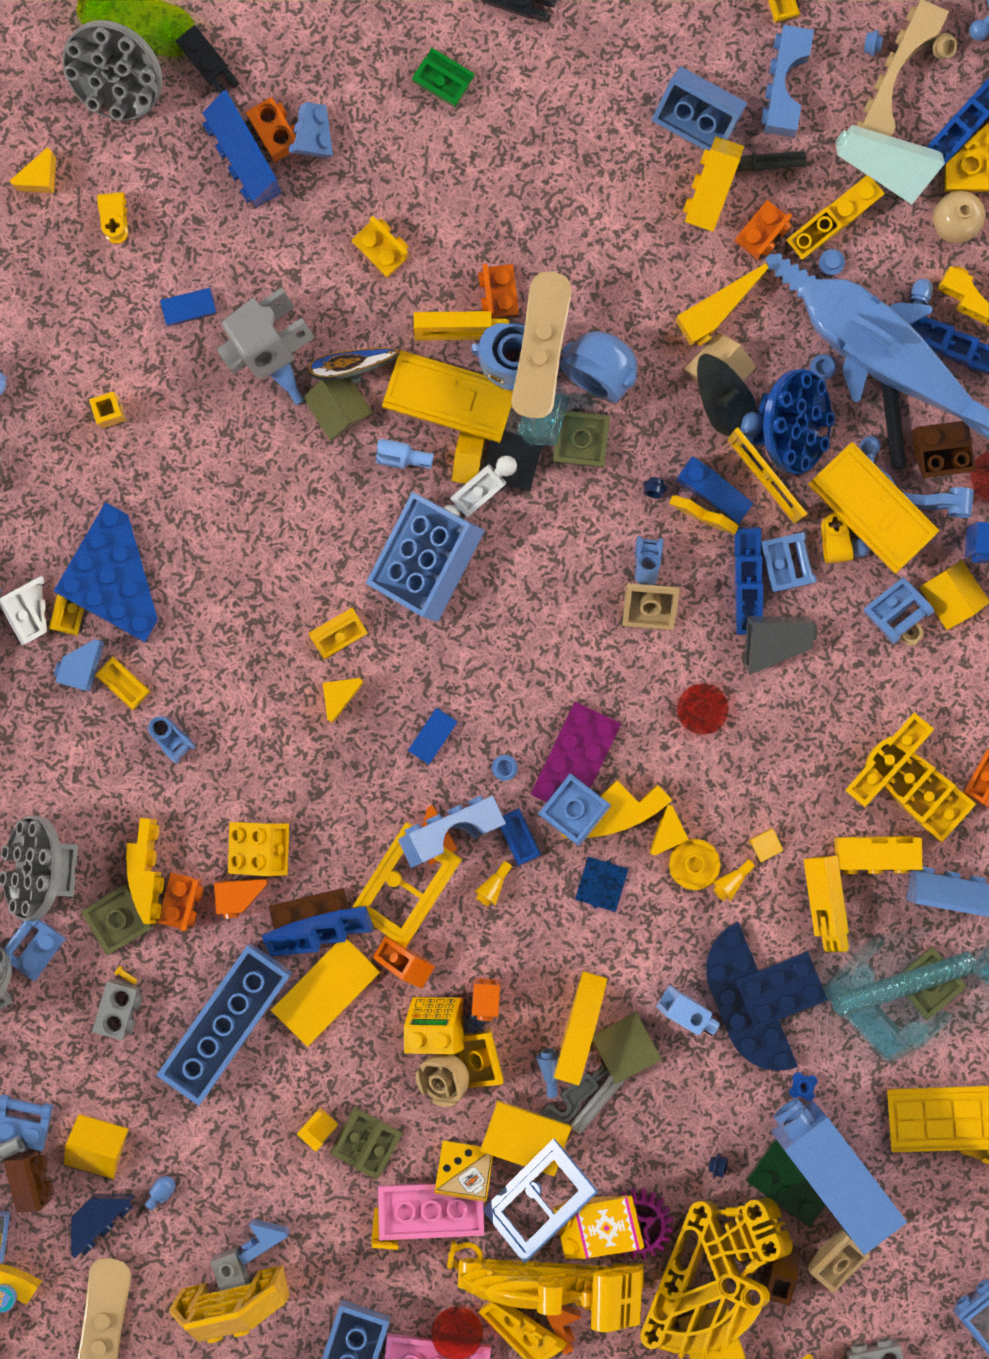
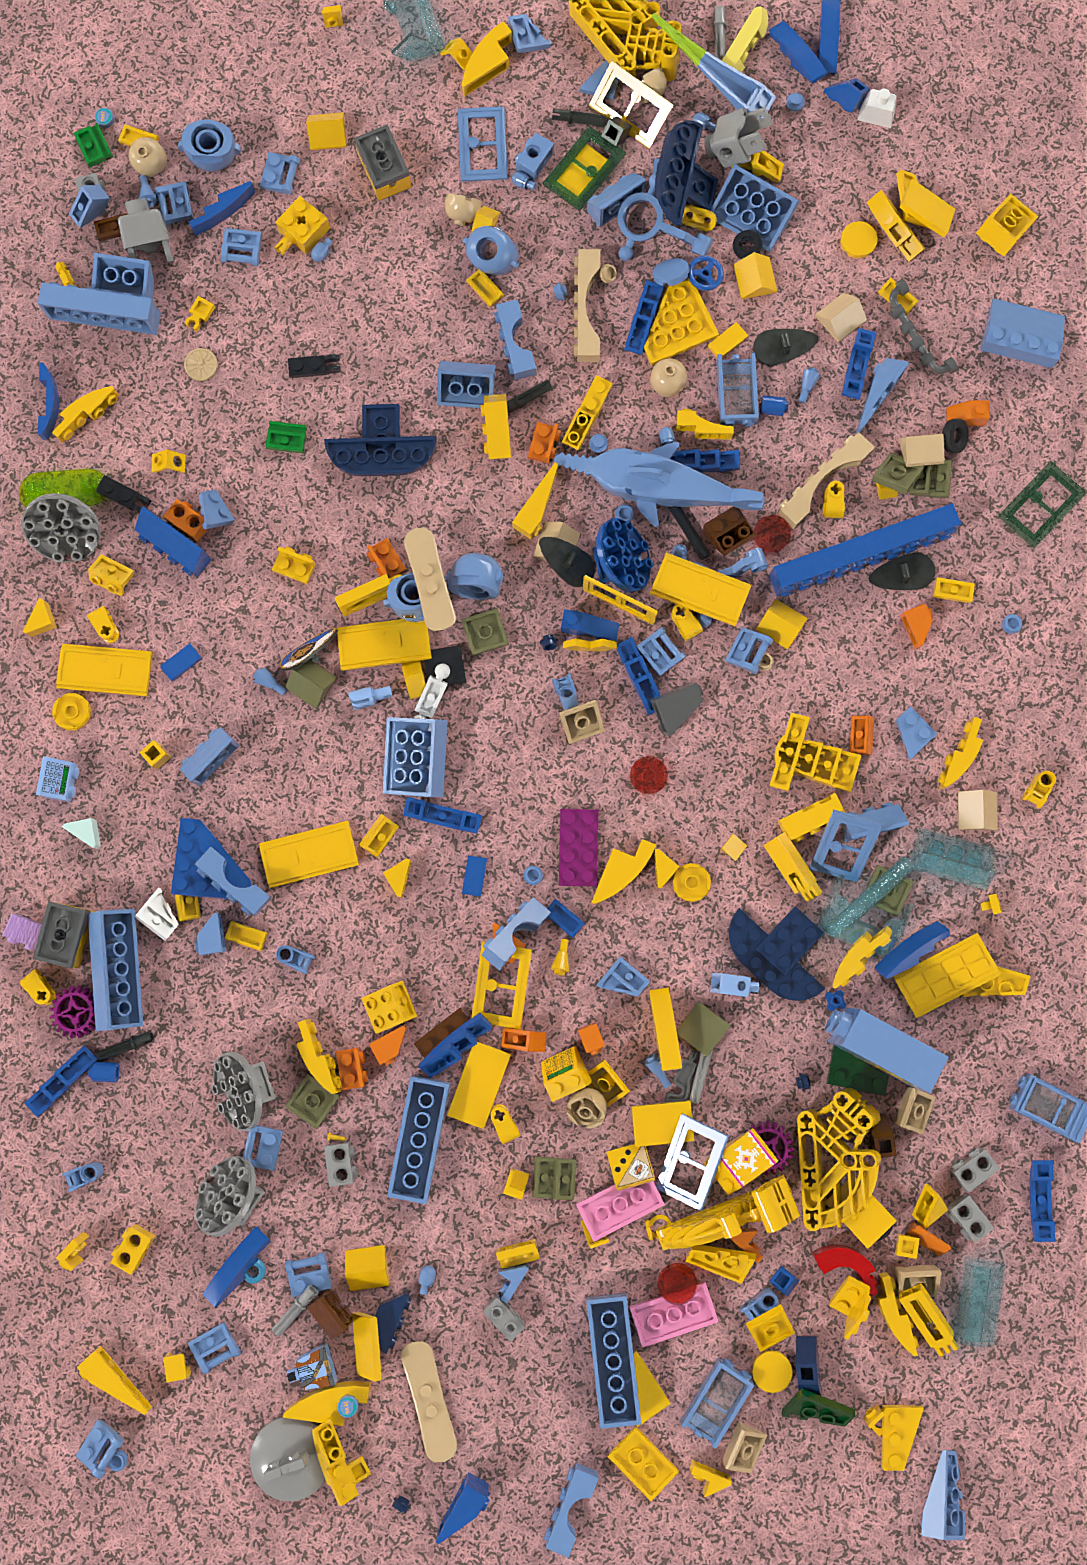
camera: 25 degrees left, 5 degrees down
(35, 311) = (71, 717): none -> yellow tile
(55, 1238) = (367, 1346): none -> yellow tile
(89, 273) = (104, 670): none -> yellow piece
(119, 581) = (213, 866): none -> medium blue arch
(148, 156) = (110, 574): none -> yellow bracket
(172, 441) = (208, 756): none -> medium blue slope
(230, 1310) = (512, 1337): yellow wedge -> none
(242, 617) = (308, 854): none -> yellow piece
(256, 341) = (235, 662): light grey piece -> none
(277, 39) = (164, 460): none -> yellow bracket
(282, 1211) = (517, 1253): none -> yellow bracket
(334, 1055) = (505, 1127): none -> yellow piece
(426, 644) = (442, 815): none -> blue slope
(472, 1024) = (590, 1060): dark blue plate -> none
(547, 429) = (457, 634): clear light blue bracket -> none
(556, 145) = (381, 447): none -> dark blue plate
(557, 943) = (623, 979): none -> medium blue wing
(574, 809) = (593, 881): medium blue tile -> none
(601, 884) = (634, 924): clear blue piece -> none
(729, 884) = (721, 885): yellow cone -> none
(751, 426) = (595, 571): medium blue cylinder -> none
(854, 1046) = (855, 960): none -> yellow slope
(882, 892) = (827, 842): none -> medium blue door
(890, 161) = (606, 360): light aqua slope -> none
(918, 1070) = (908, 952): none -> blue slope

